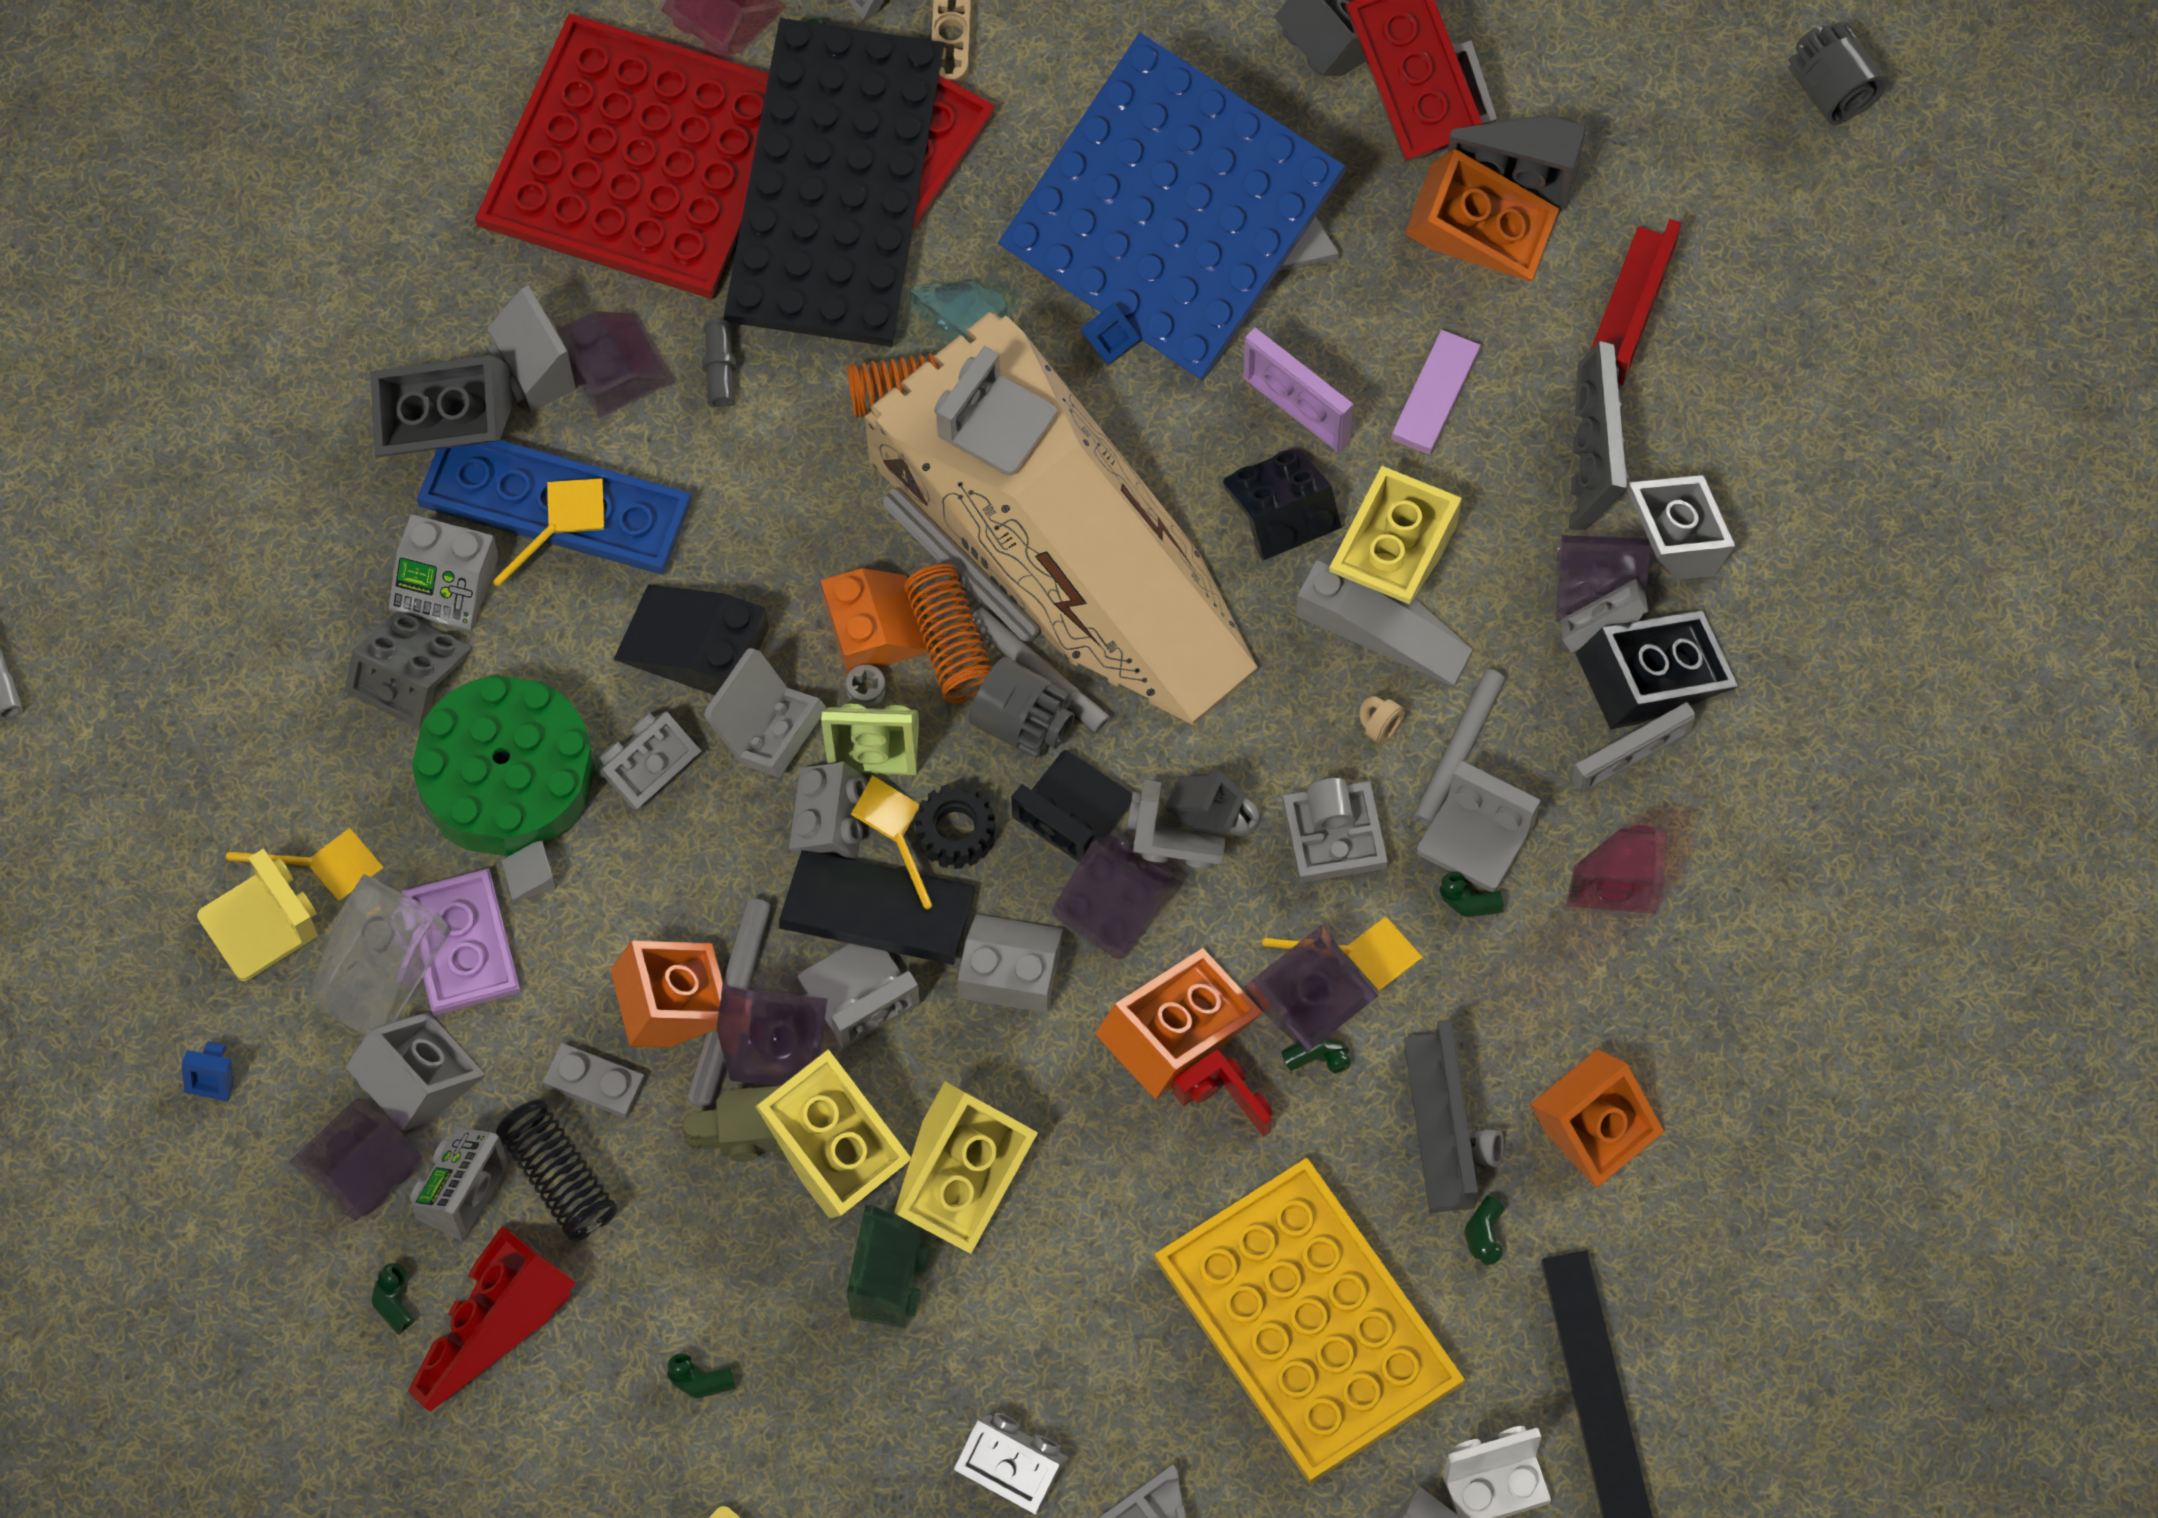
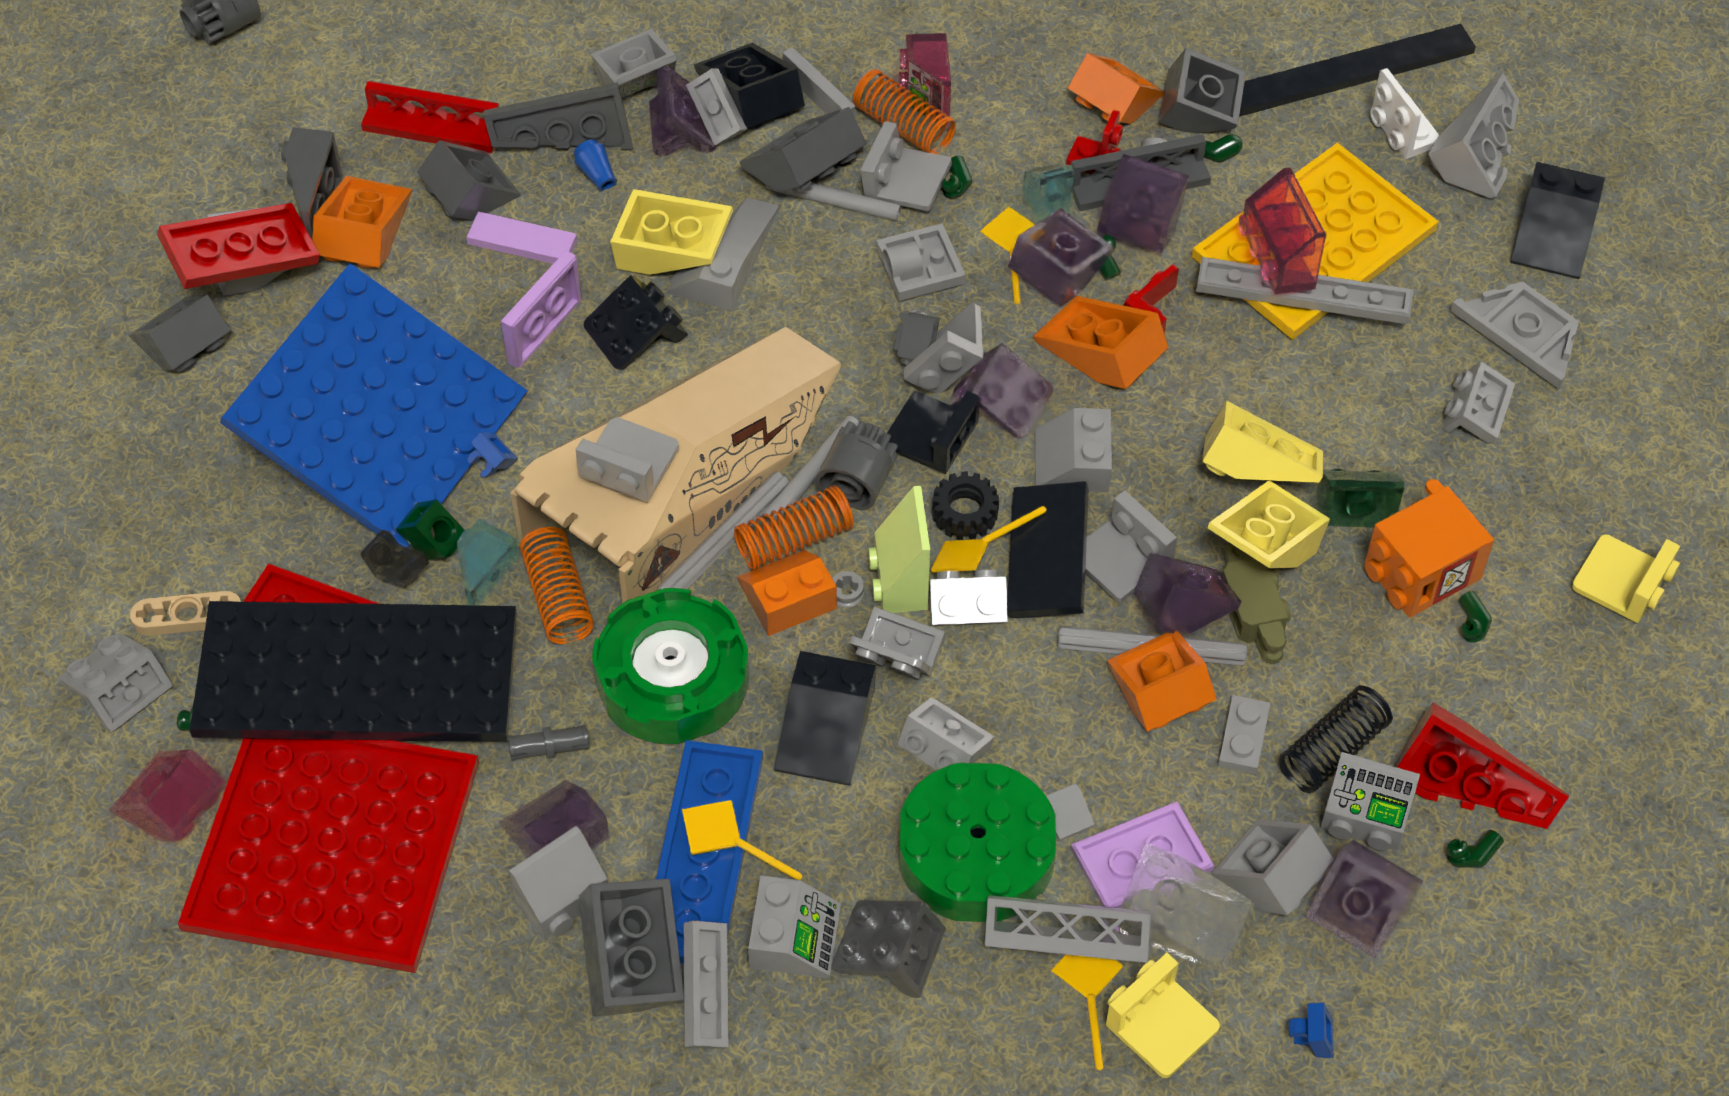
camera: 100 degrees left, 10 degrees down
(363, 829) = (1068, 939): none -> light grey fence
(387, 476) = (705, 985): none -> light grey plate
(782, 484) = (671, 666): none -> green piece
(783, 1325) = (1428, 550): none -> orange container
(979, 227) = (393, 562): none -> clear smoke bracket
(1019, 254) = (417, 530): none -> dark green brick
(1211, 1277) = (1330, 295): none -> light grey tile
(1273, 1243) = (1284, 234): none -> clear pink slope
(1368, 1096) = (1143, 203): none -> clear purple slope
(1384, 721) = (822, 238): tan tile -> none
(1424, 992) = (1048, 189): none -> clear light blue slope
(1488, 1069) = (1088, 148): none -> red bracket
(1519, 711) = (806, 151): none -> dark grey slope
(1527, 335) = (465, 180): none -> dark grey slope
(1539, 479) = (594, 163): none -> blue cone
(1564, 1220) = (1202, 94): none -> dark grey slope
(1605, 791) = (941, 122): none -> orange piece

